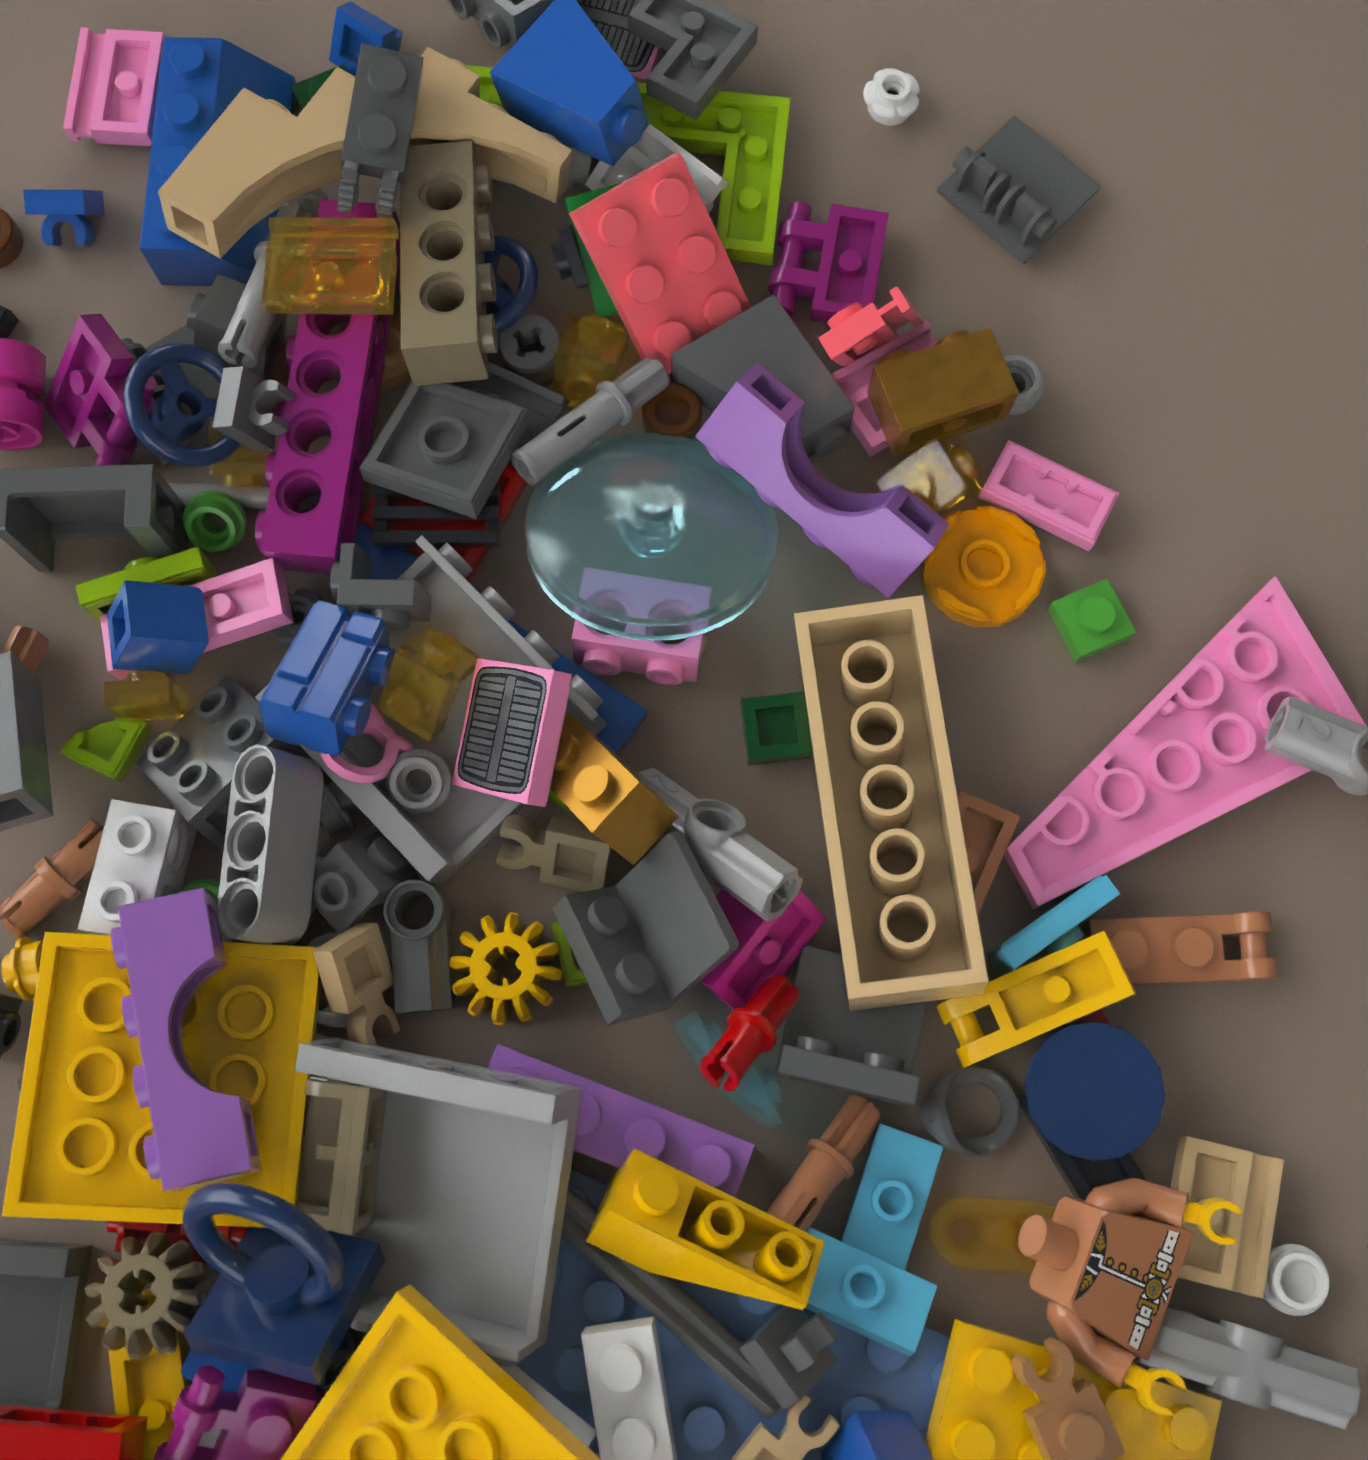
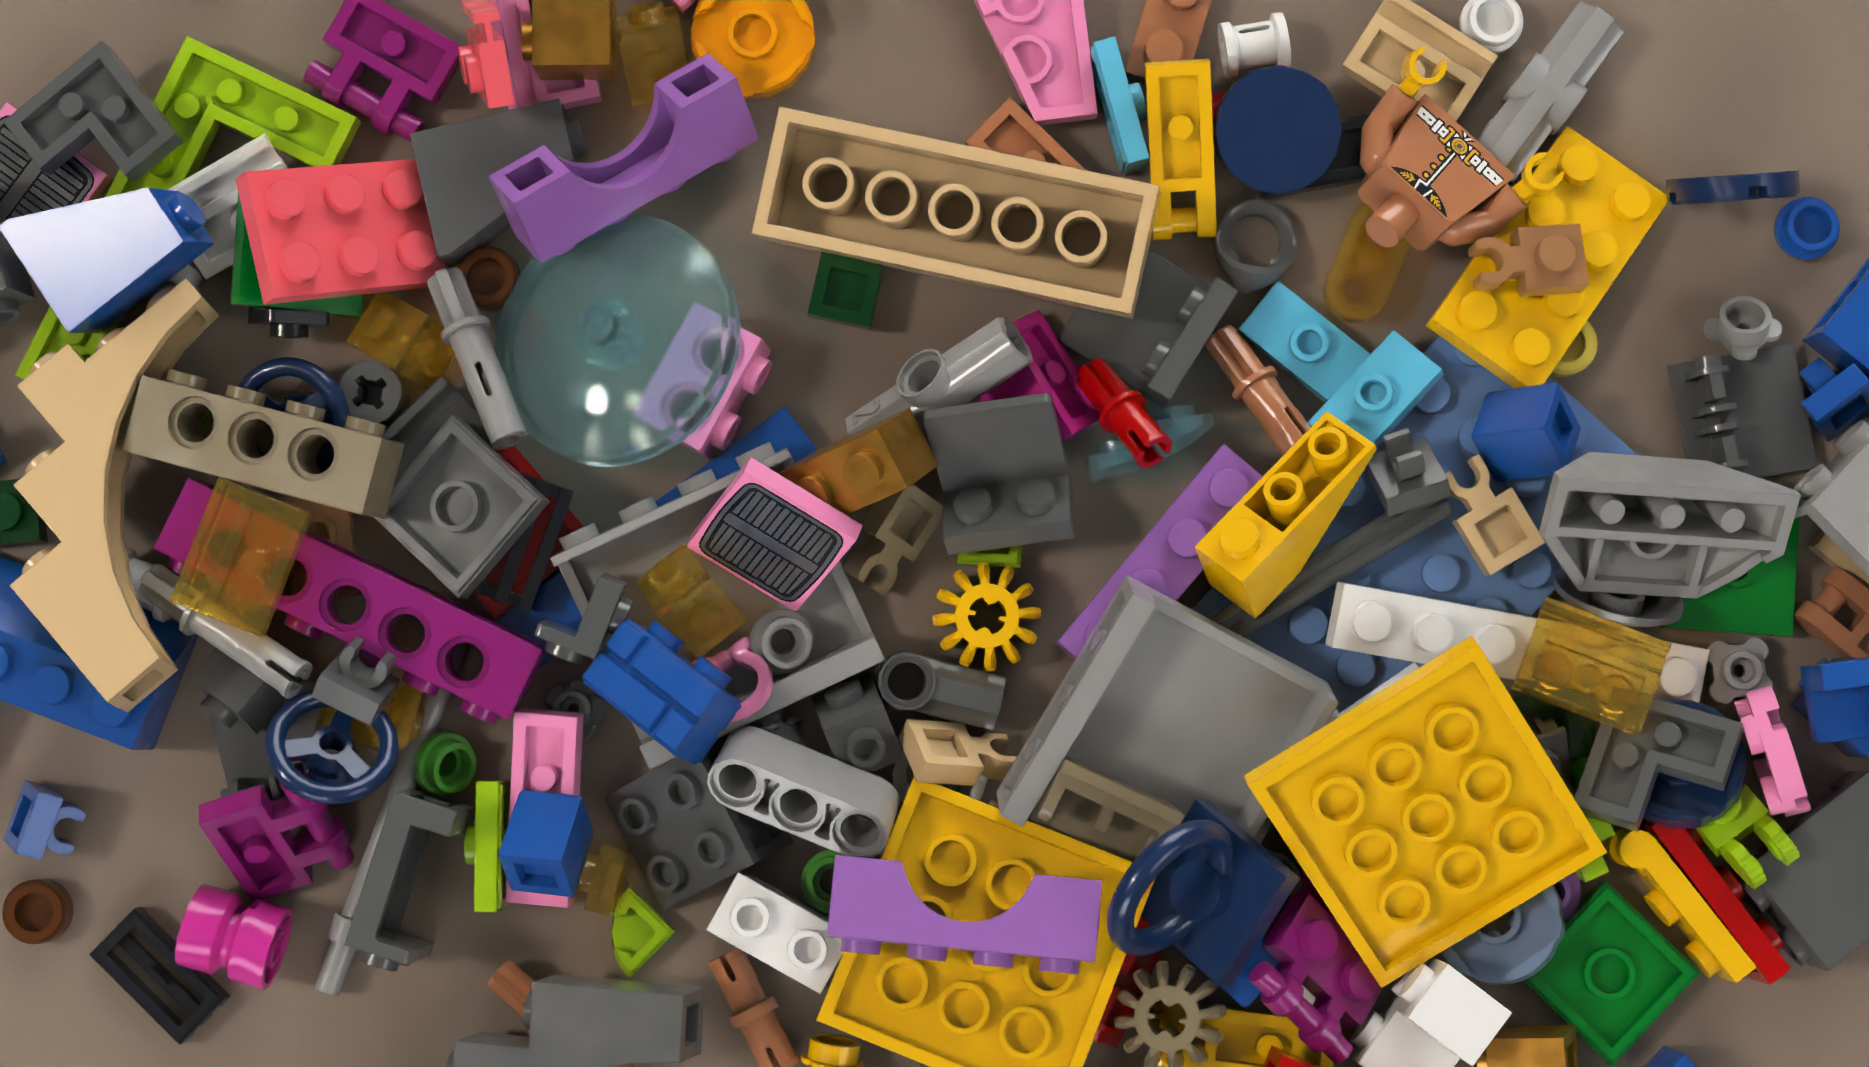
camera: 70 degrees left, 10 degrees up
(379, 125) = (105, 461): dark grey hinge -> none
(1169, 1039) = (1254, 44): none -> white bush

